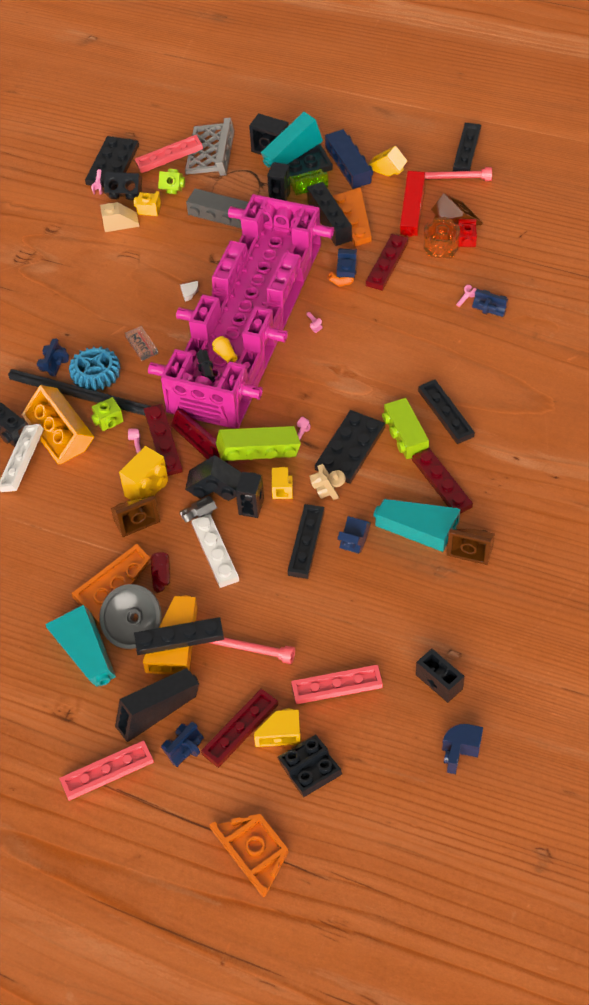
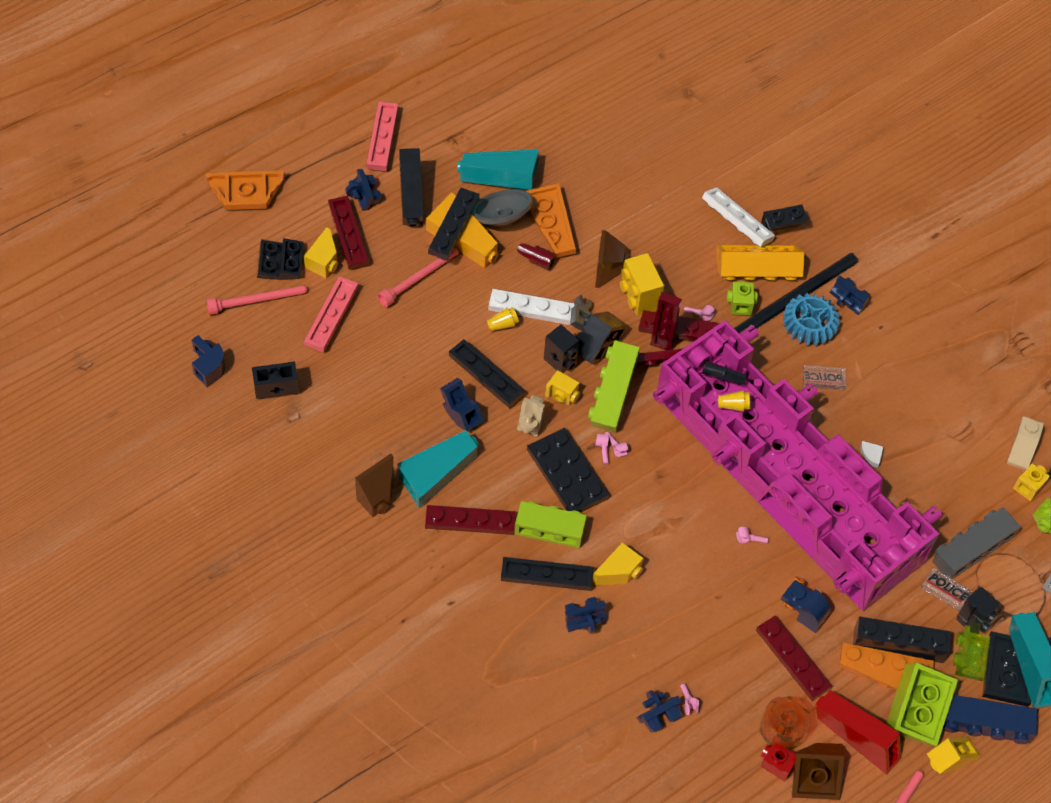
camera: 115 degrees right, 5 degrees up
(178, 422) = (665, 321): none -> dark red plate
(243, 556) = (504, 319): none -> yellow cone
(307, 437) = (602, 441): none -> bright pink hand
(371, 182) = (921, 703): none -> lime slope
(400, 782) = (215, 305): none -> coral piece
(405, 373) = (619, 567): none -> yellow slope
(460, 369) = (585, 616): none -> dark blue hips

